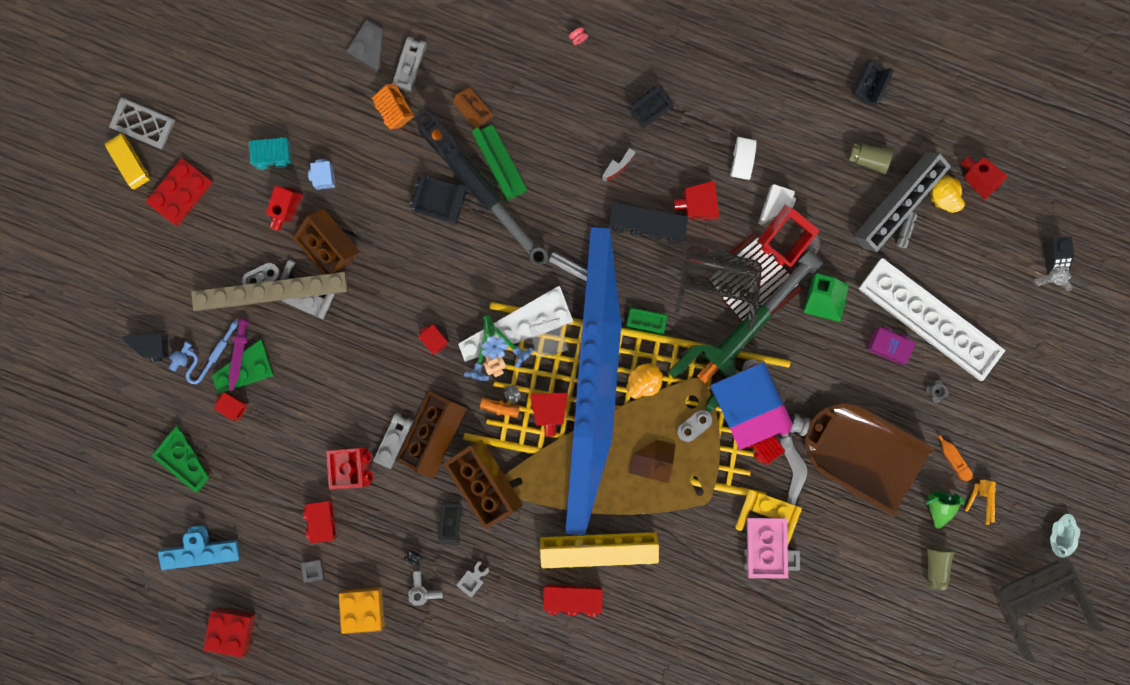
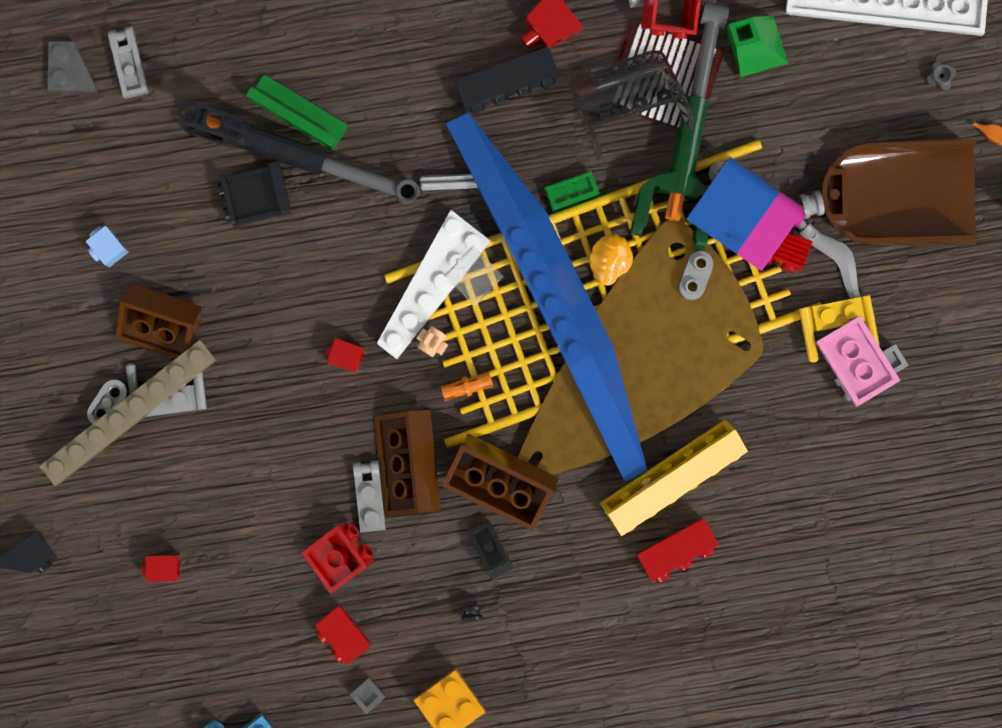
camera: 30 degrees left, 0 degrees up
(180, 358) = (72, 549): medium blue piece -> none
(181, 460) = (143, 662): green wing -> none
(239, 340) = (127, 489): magenta sword -> none
(254, 368) = (152, 519): green wing -> none
(270, 152) = (31, 257): teal brick -> none
(285, 200) = (84, 297): red torso -> none
(392, 106) = (139, 121): orange brick -> none
(419, 594) = (503, 649): light grey piece -> none
(471, 580) = (552, 599): light grey plate -> none
(472, 107) = (229, 69): dark orange slope -> none
(493, 347) = (420, 322): medium blue plant -> none
(512, 394) = (471, 362): flat silver plate -> none
(549, 411) = (524, 356): red torso -> none
(615, 168) = (433, 40): light grey slope -> none
(654, 461) = (675, 341): reddish brown slope -> none
(890, 345) = (859, 55): magenta brick -> none

